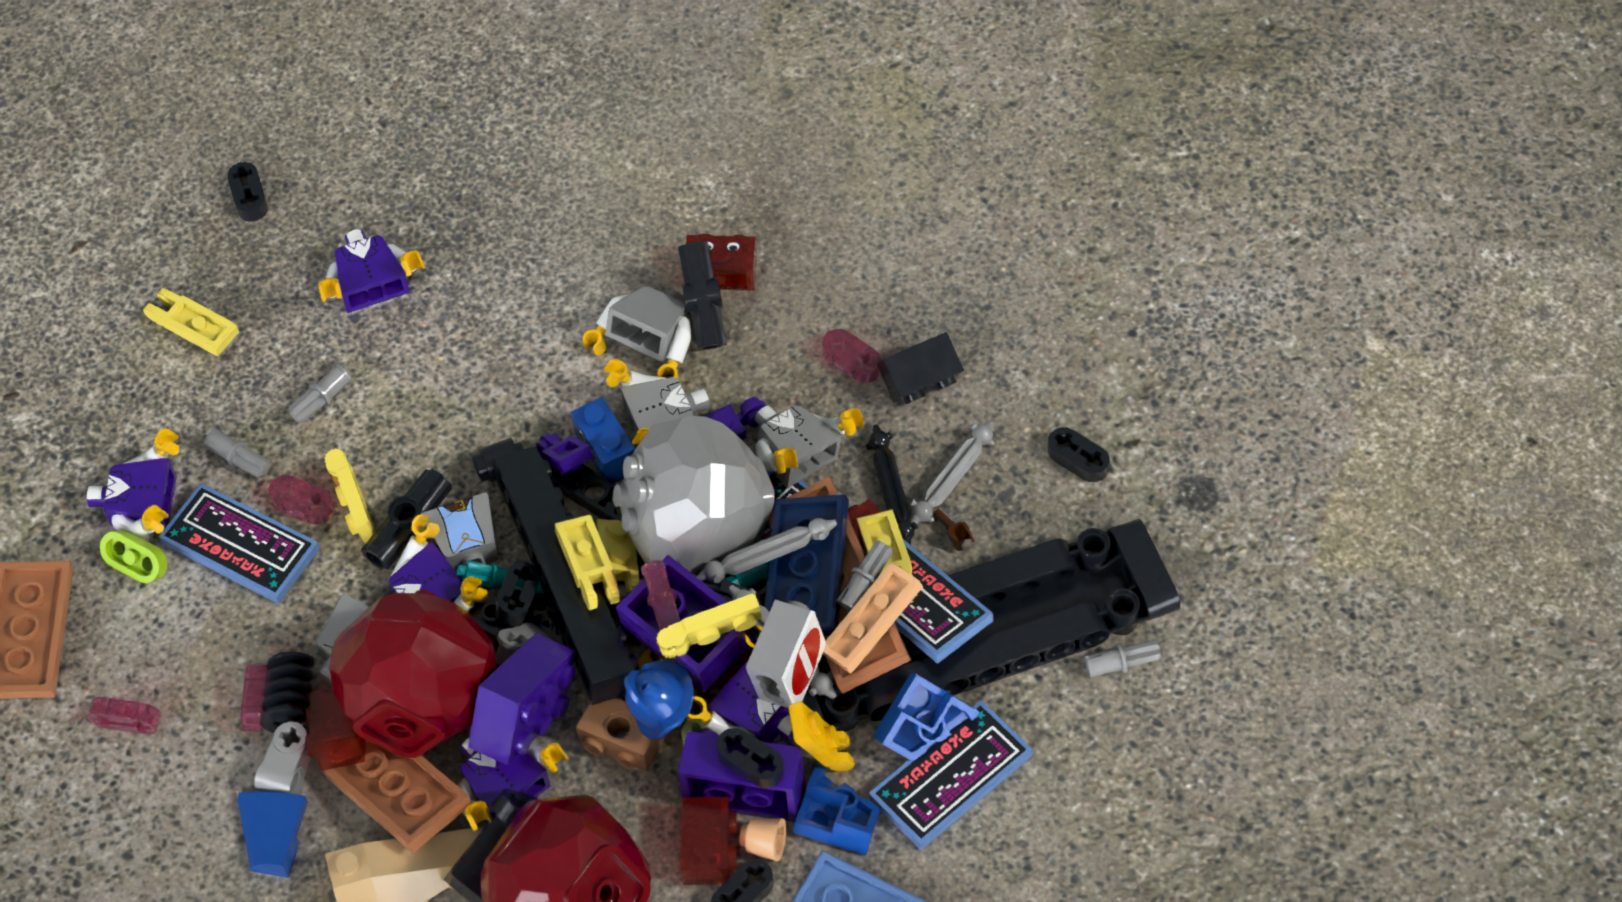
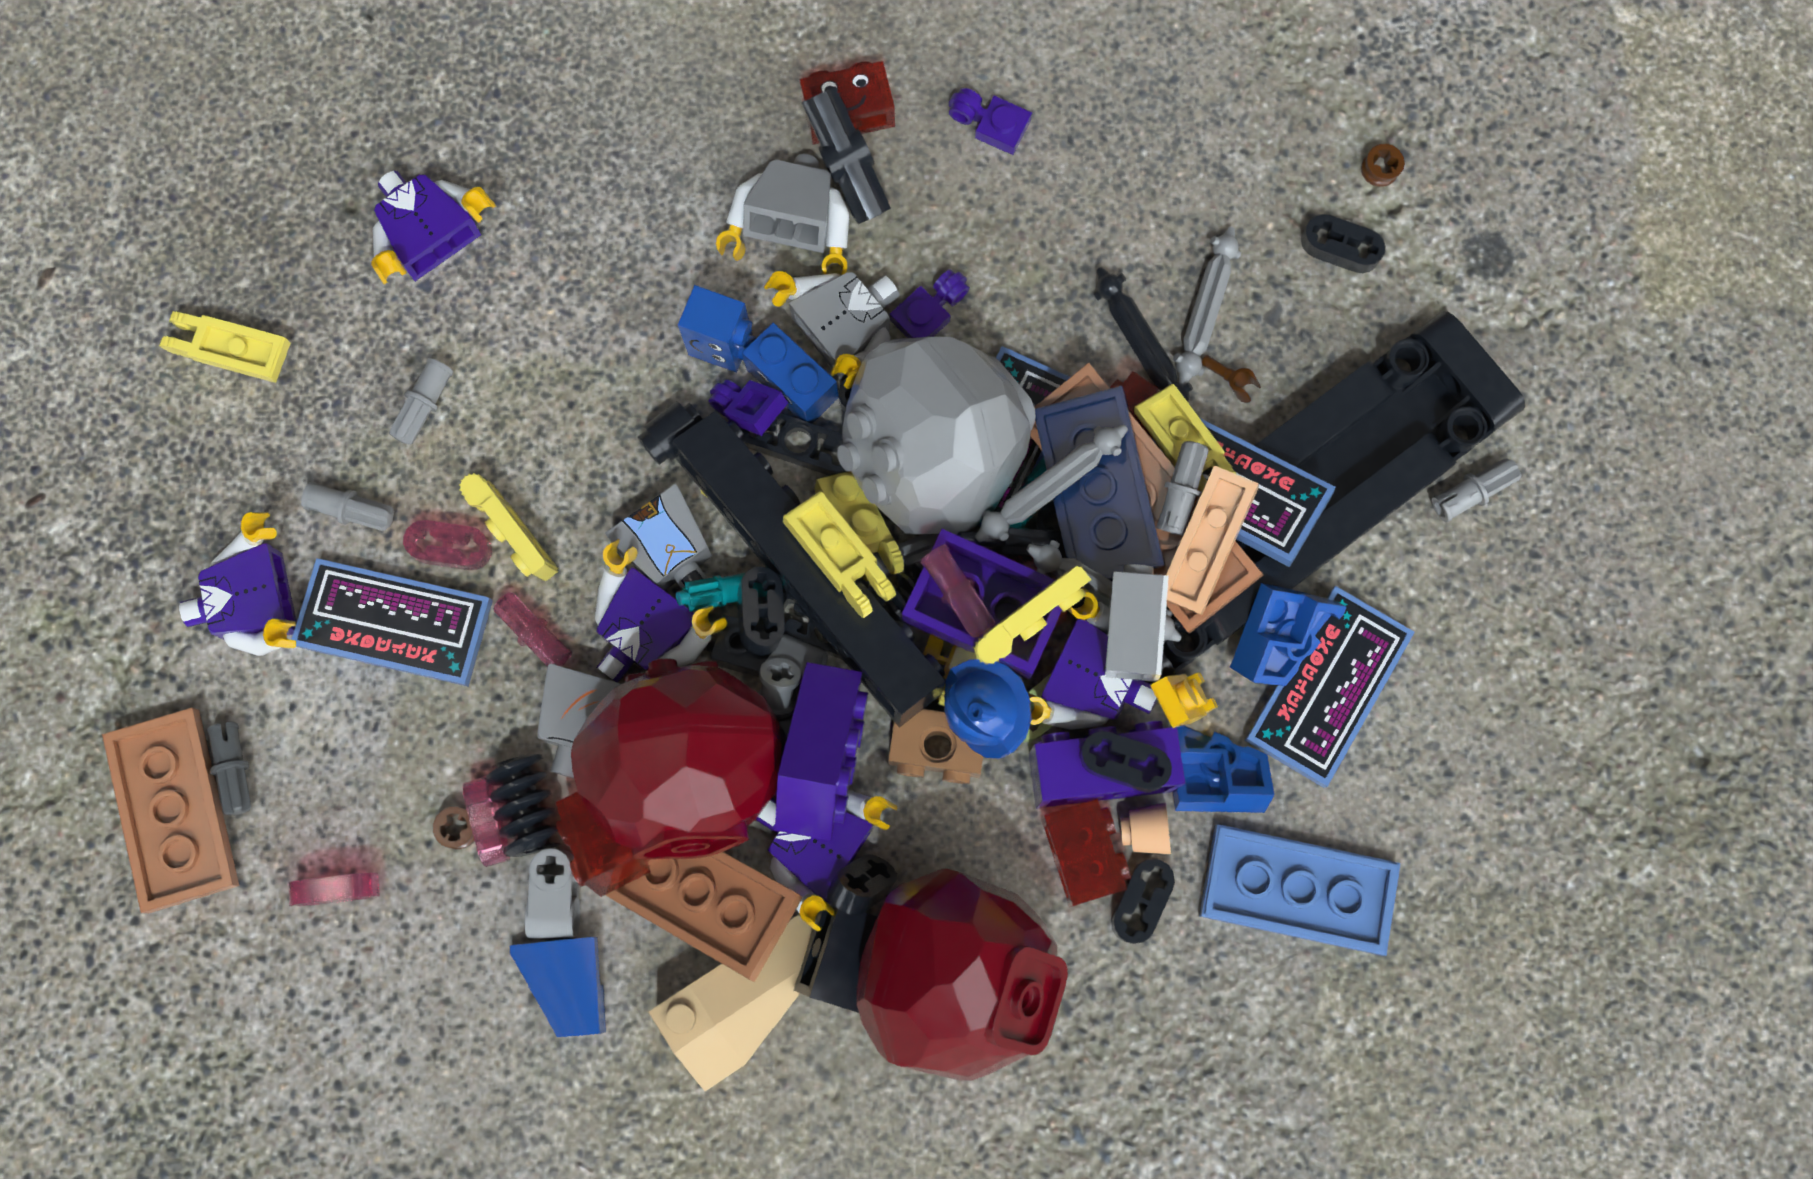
camera: 20 degrees left, 20 degrees up
(80, 612) = (229, 769): none -> dark grey axle
(136, 557) = (268, 678): lime plate -> none
(223, 692) = (444, 820): none -> reddish brown bush
(242, 193) = (225, 155): black beam -> none
(340, 572) = (531, 630): none -> clear pink axle
(395, 534) = (593, 512): black piece -> none
(556, 391) = (715, 328): none -> blue brick
(800, 441) = (1024, 313): light grey torso -> none
(834, 307) = (999, 125): none -> dark purple plate
(849, 359) = (1040, 184): clear pink beam -> none
(921, 367) = (1132, 183): black brick -> none
(1123, 400) = (1373, 173): none -> reddish brown bush

